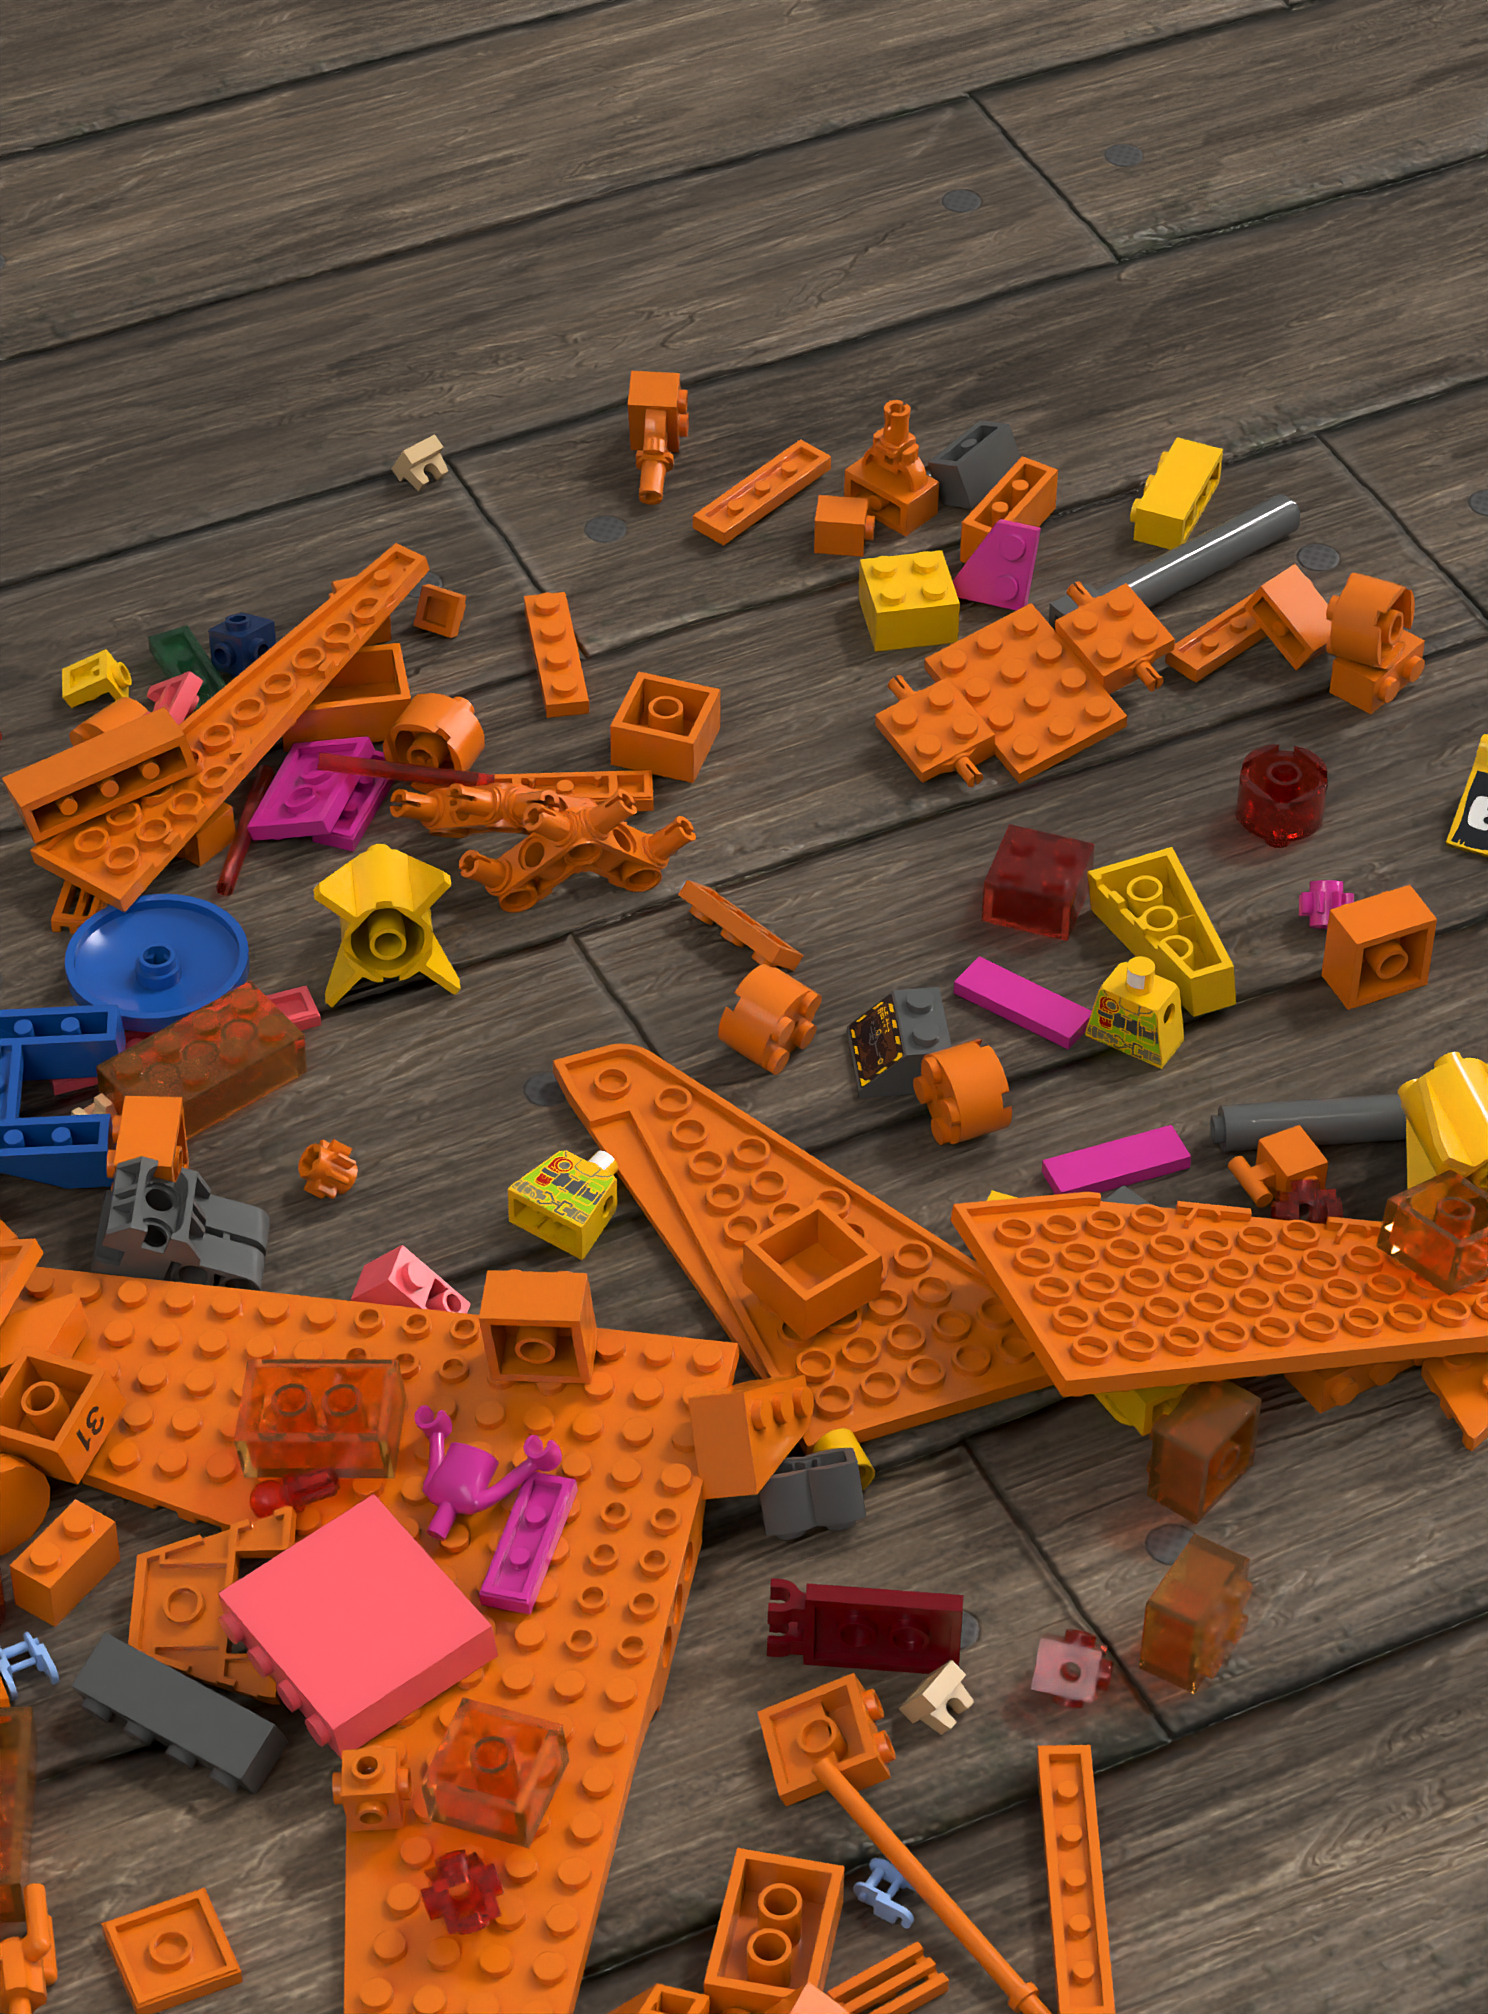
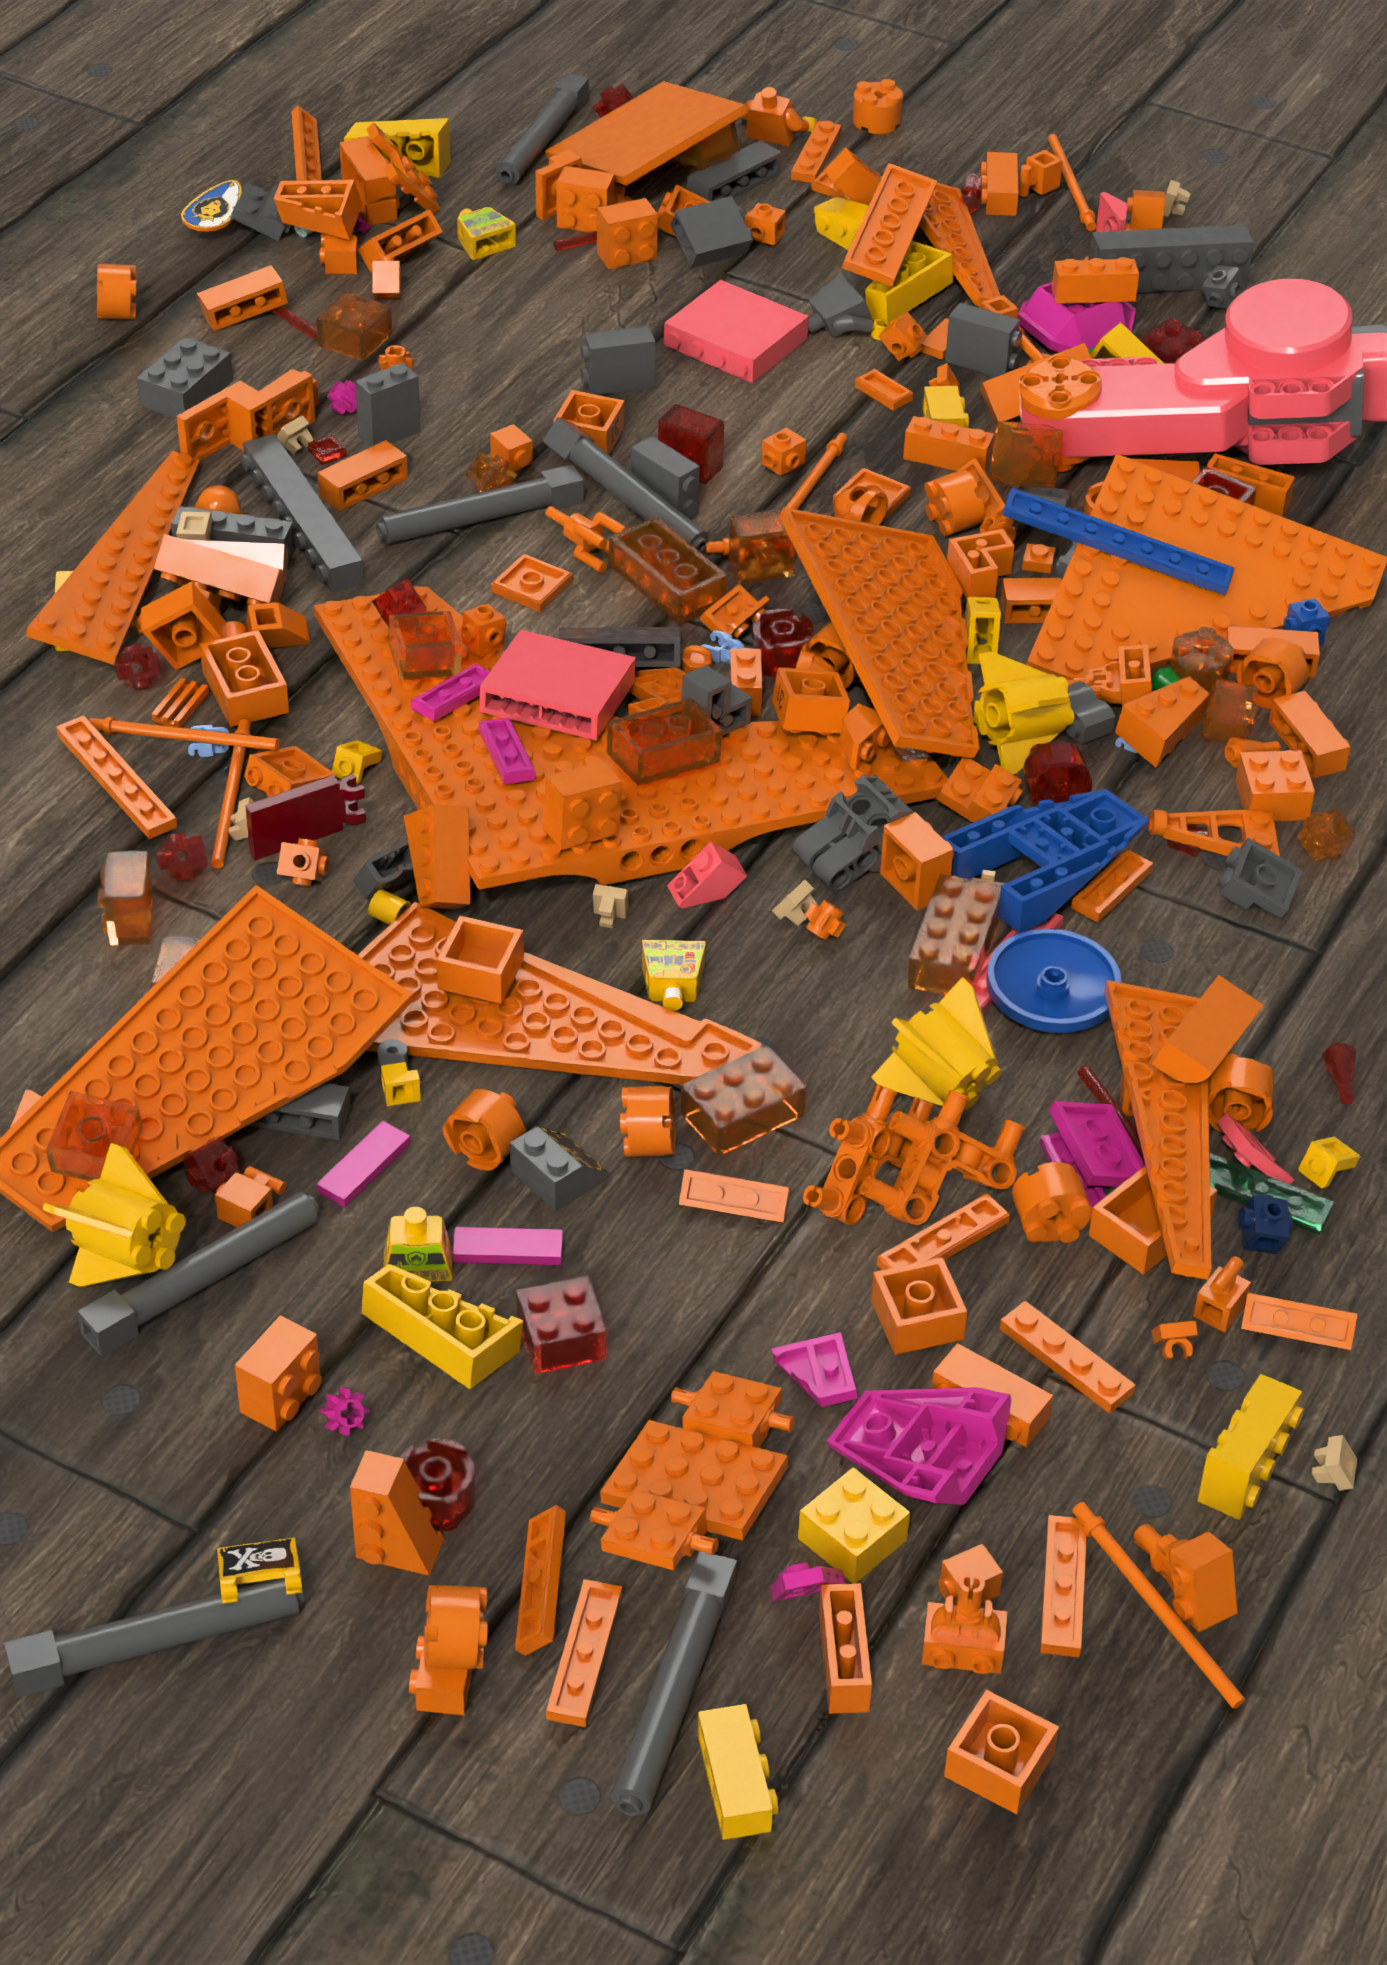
camera: 145 degrees right, 0 degrees up
(73, 1654) = (696, 657): none -> orange tile
(193, 1466) = (718, 698): none -> dark grey brick
(308, 569) = (1299, 1321): none -> orange plate
(335, 1218) = (794, 902): none -> tan tile
(400, 771) = (1052, 1155): clear red bar -> none
(461, 1477) = (562, 753): dark pink piece -> none
(486, 493) = (1249, 1445): none -> yellow wedge
(533, 1690) = (450, 693): none -> dark pink tile
(639, 1004) = (743, 1100): none -> clear orange brick
(669, 636) = (1029, 1403): none -> orange brick
(697, 496) = (1095, 1528): none -> orange bar
(706, 1728) = (354, 758): none -> yellow bracket
(784, 630) = (926, 1440): none -> dark pink wedge
(808, 740) = (819, 1368): none -> dark pink wing
(913, 1566) = (293, 857): none -> orange brick
(933, 1765) = (230, 797): none -> orange bar
(945, 397) = (1001, 1751): none -> orange brick
(974, 463) = (923, 1693): dark grey brick -> none
(1235, 693) = (540, 1580): none -> orange plate
(1292, 616) = (537, 1660): orange brick -> none
(1364, 758) = (389, 1518): none -> orange wedge

